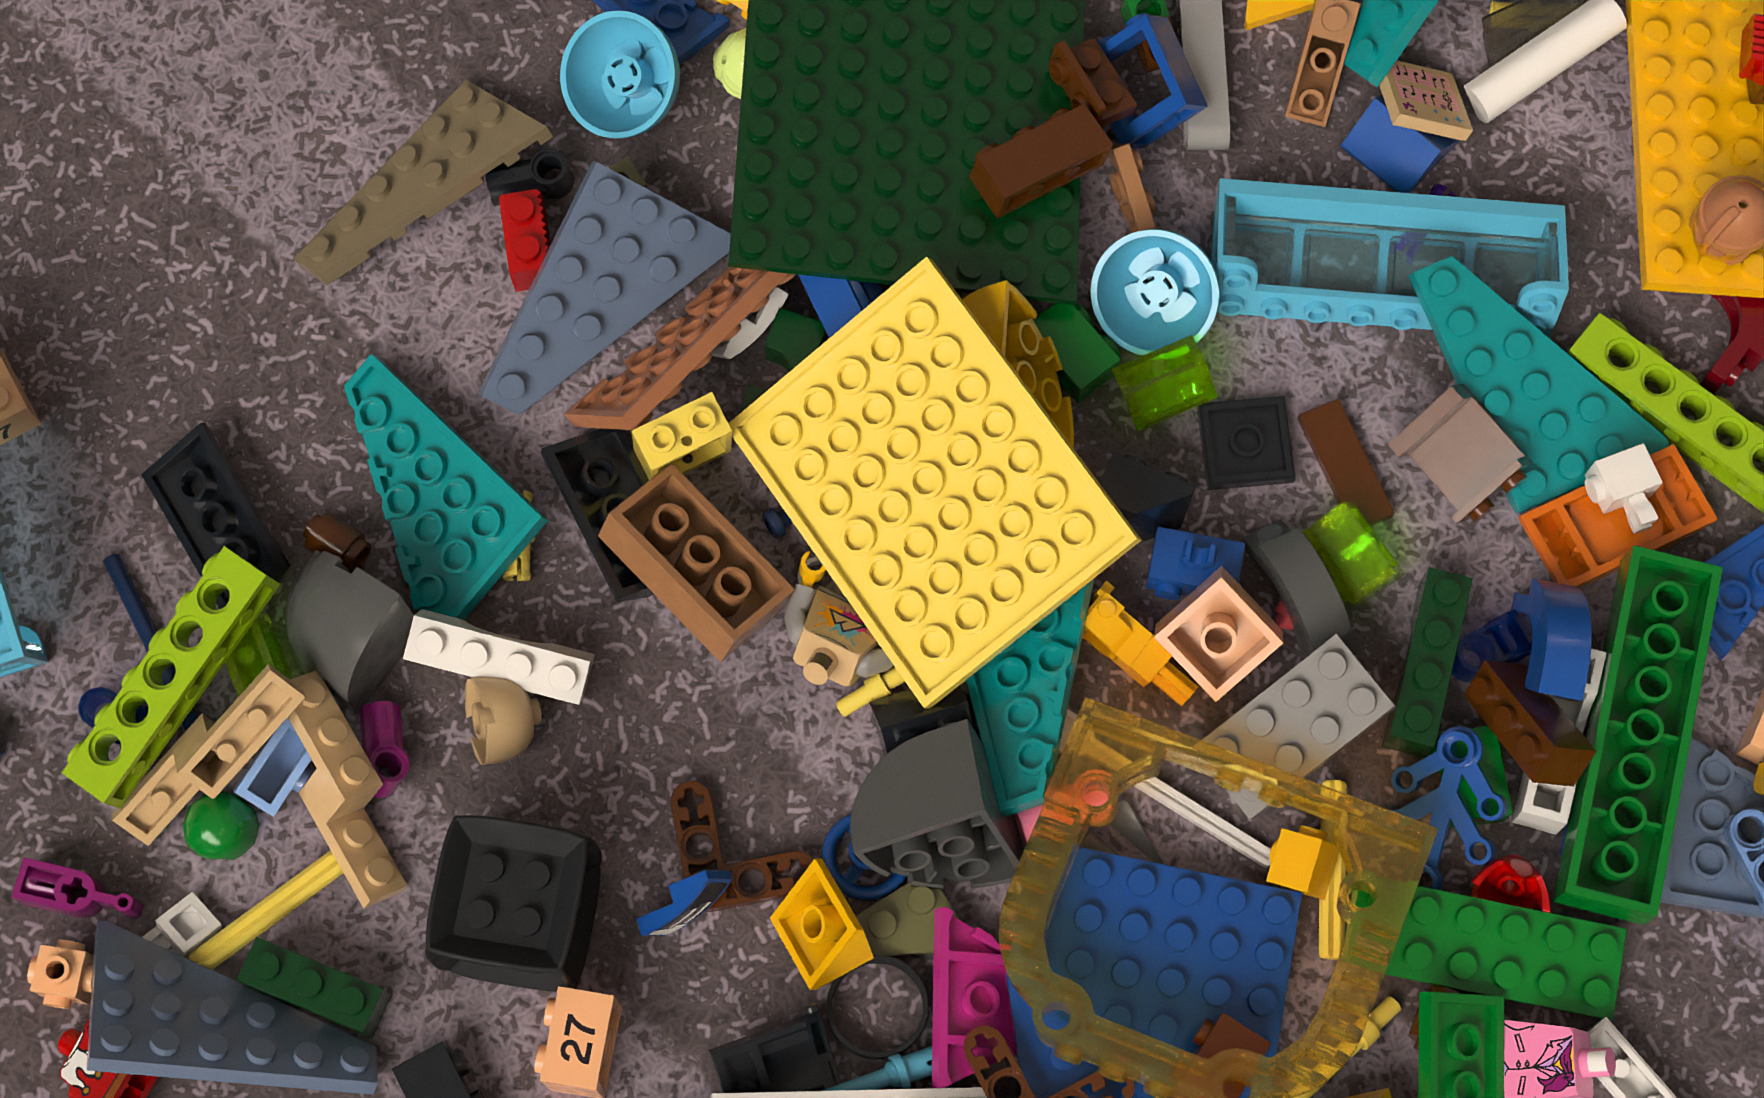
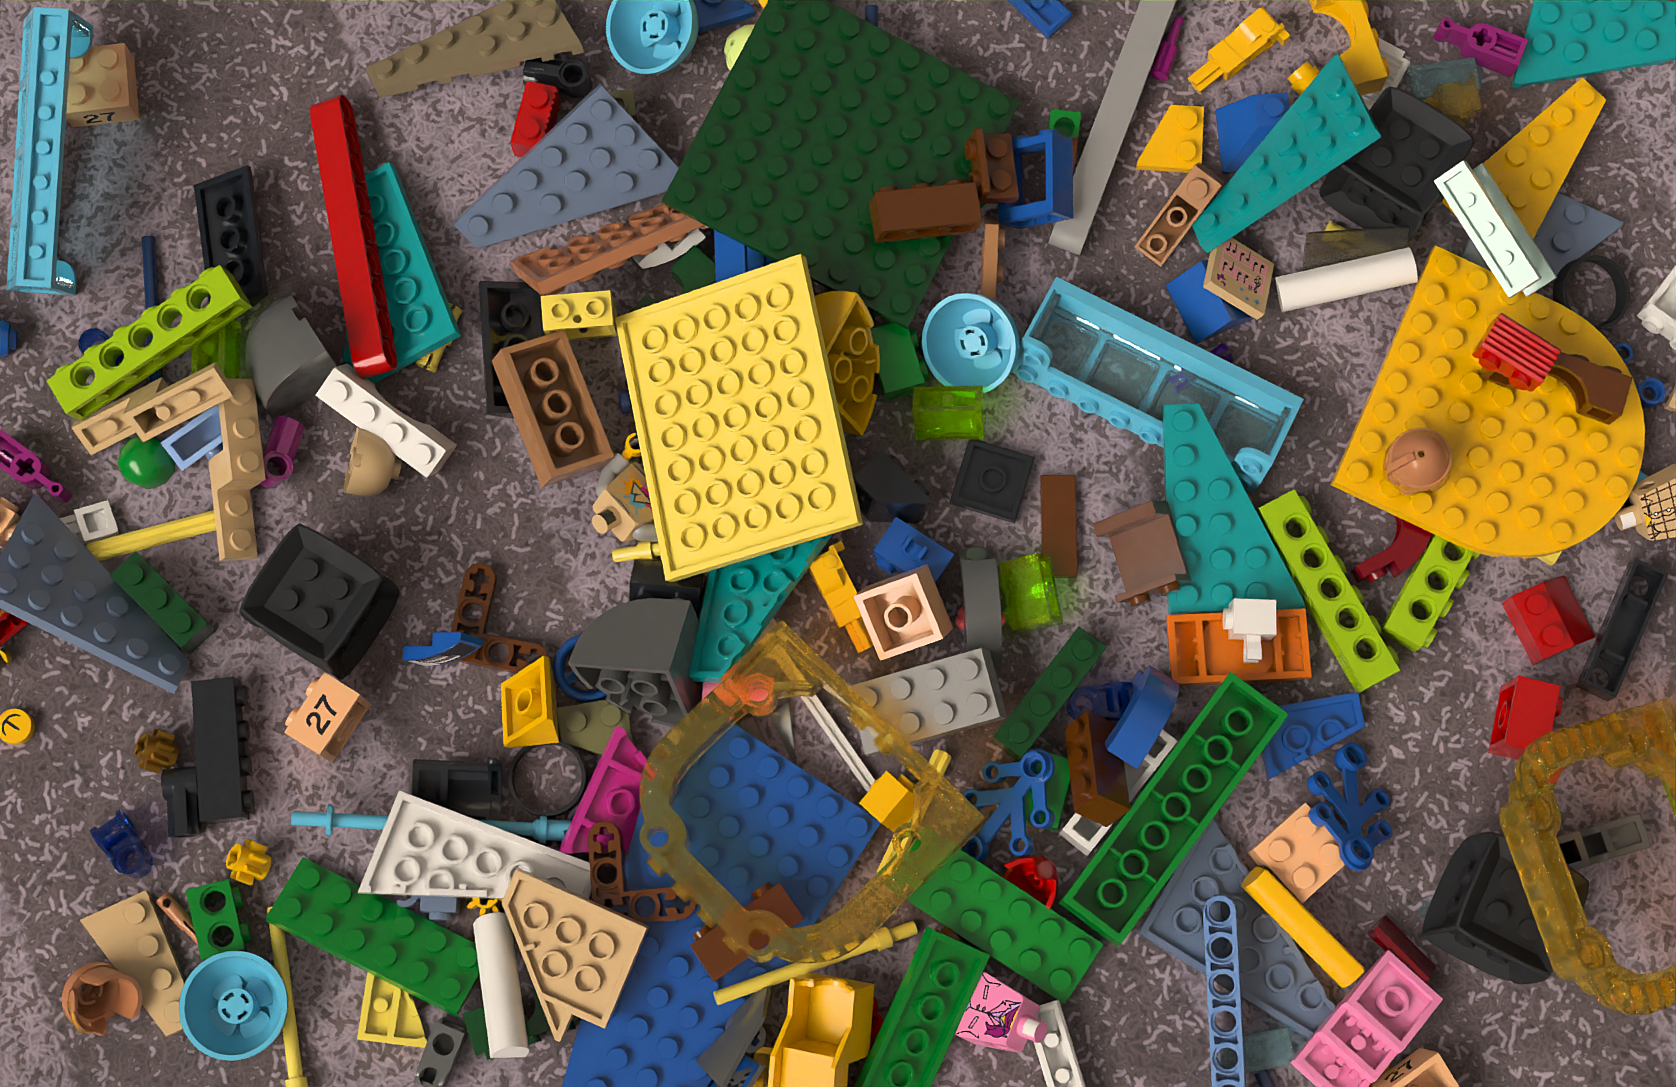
camera: 20 degrees right, 5 degrees up
(337, 537) = (309, 290): reddish brown brick -> none
(367, 458) = (353, 237): none -> red beam

